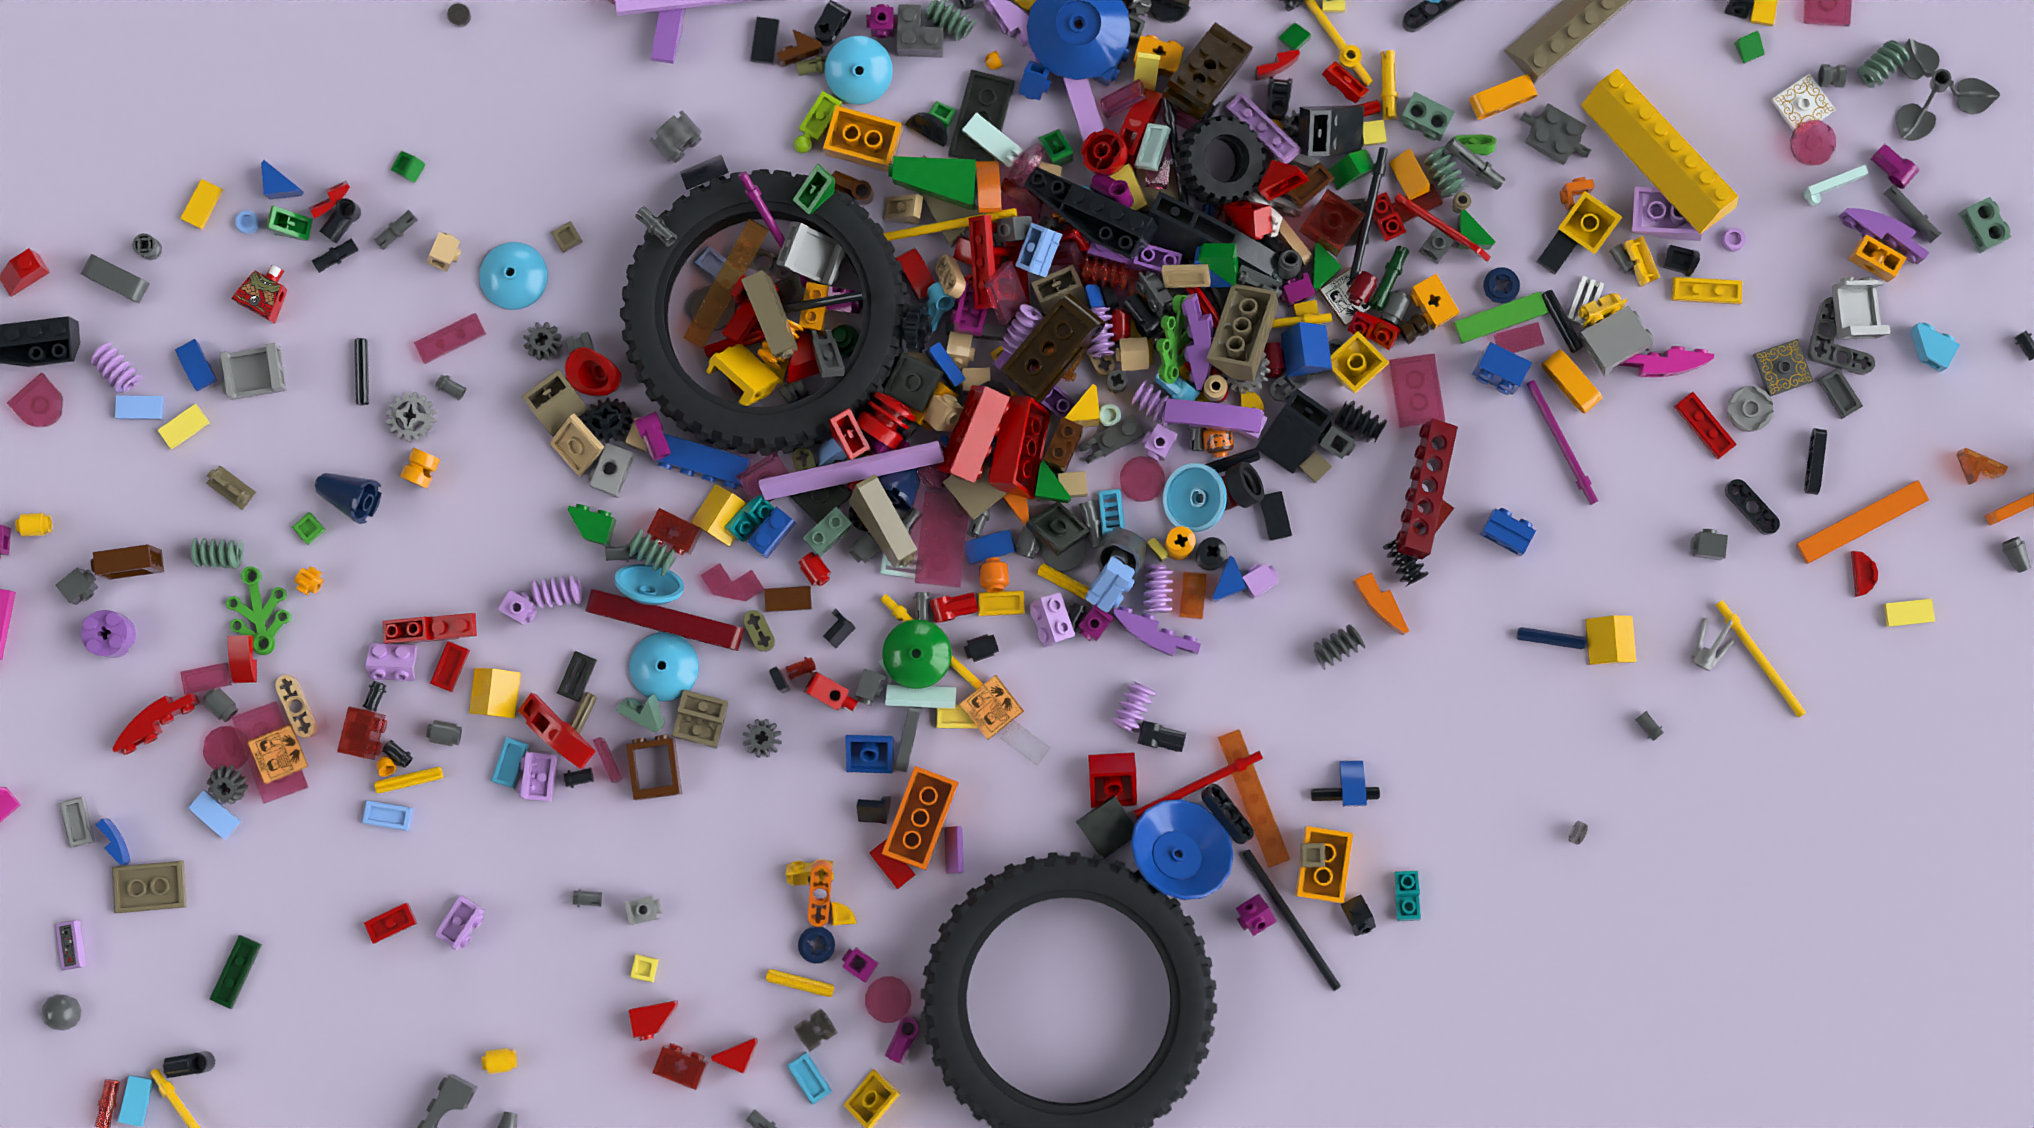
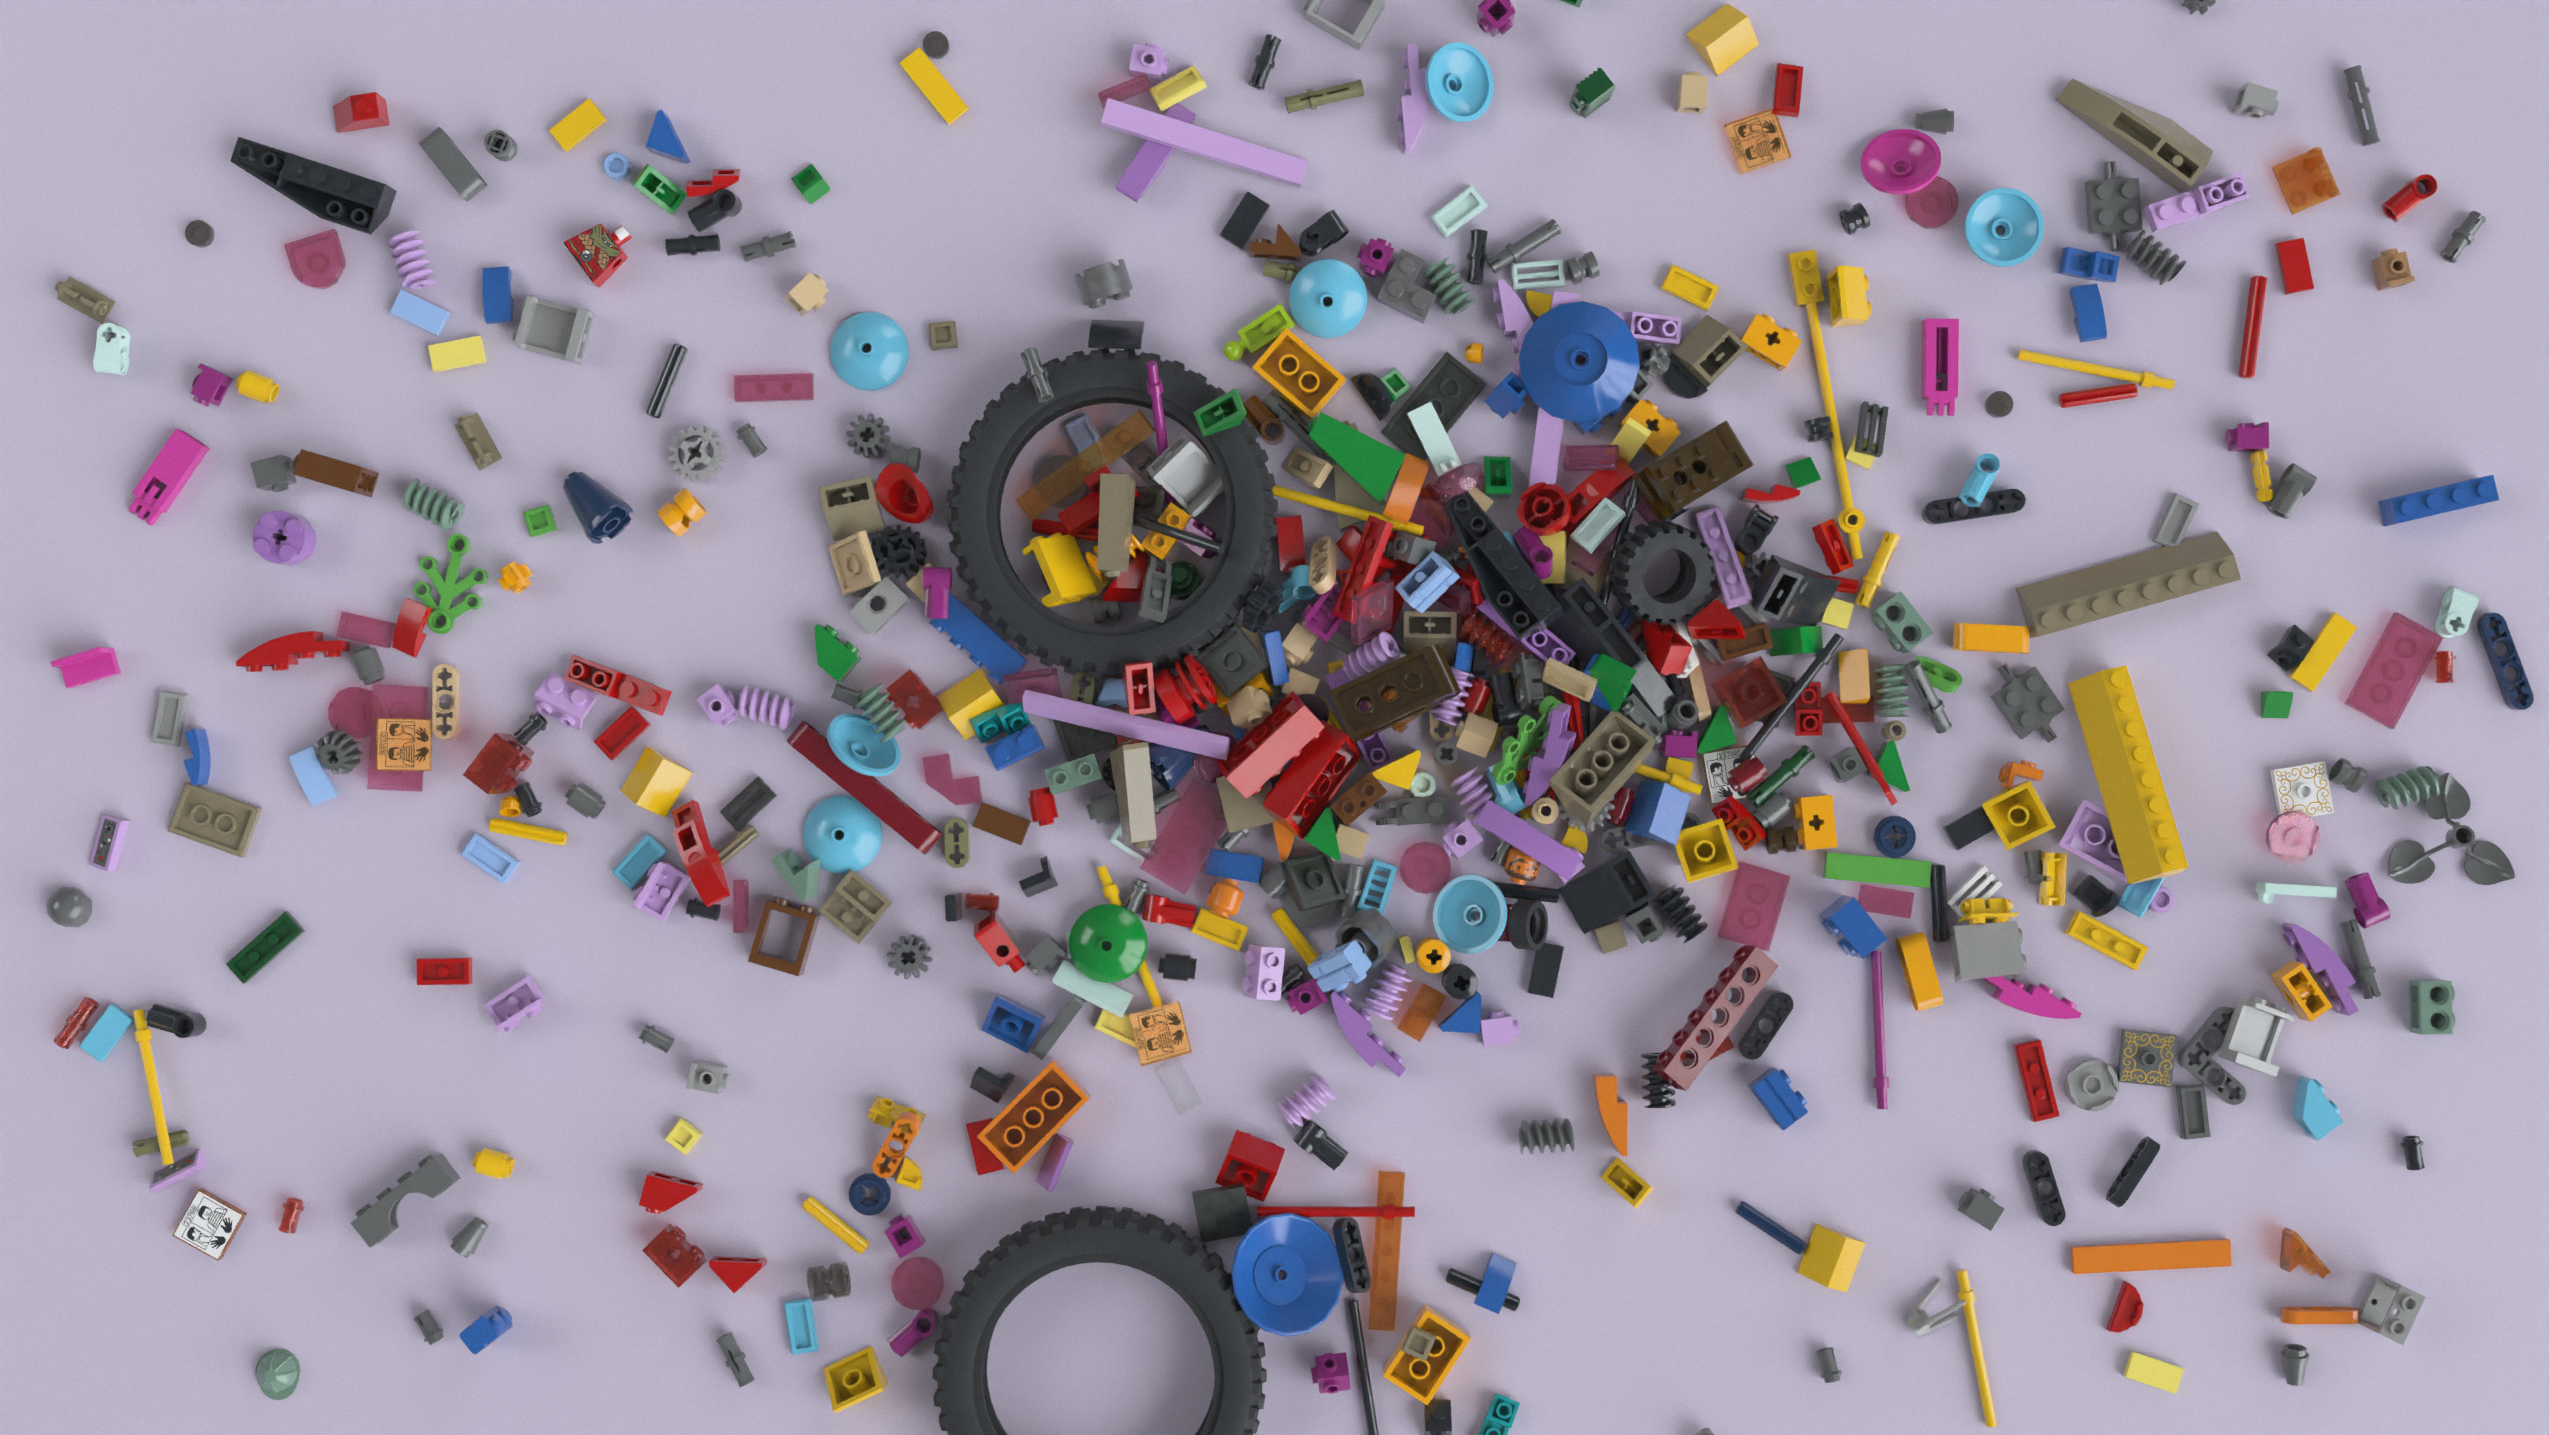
camera: 20 degrees right, 5 degrees up
(472, 47) = (934, 86): none -> yellow tile
(873, 177) = (1290, 418): none -> dark grey pin
(1419, 654) = (1627, 1182): none -> yellow slope
(1467, 462) = (1748, 1037): none -> black beam
(1715, 241) = (2139, 896): none -> medium azure tile

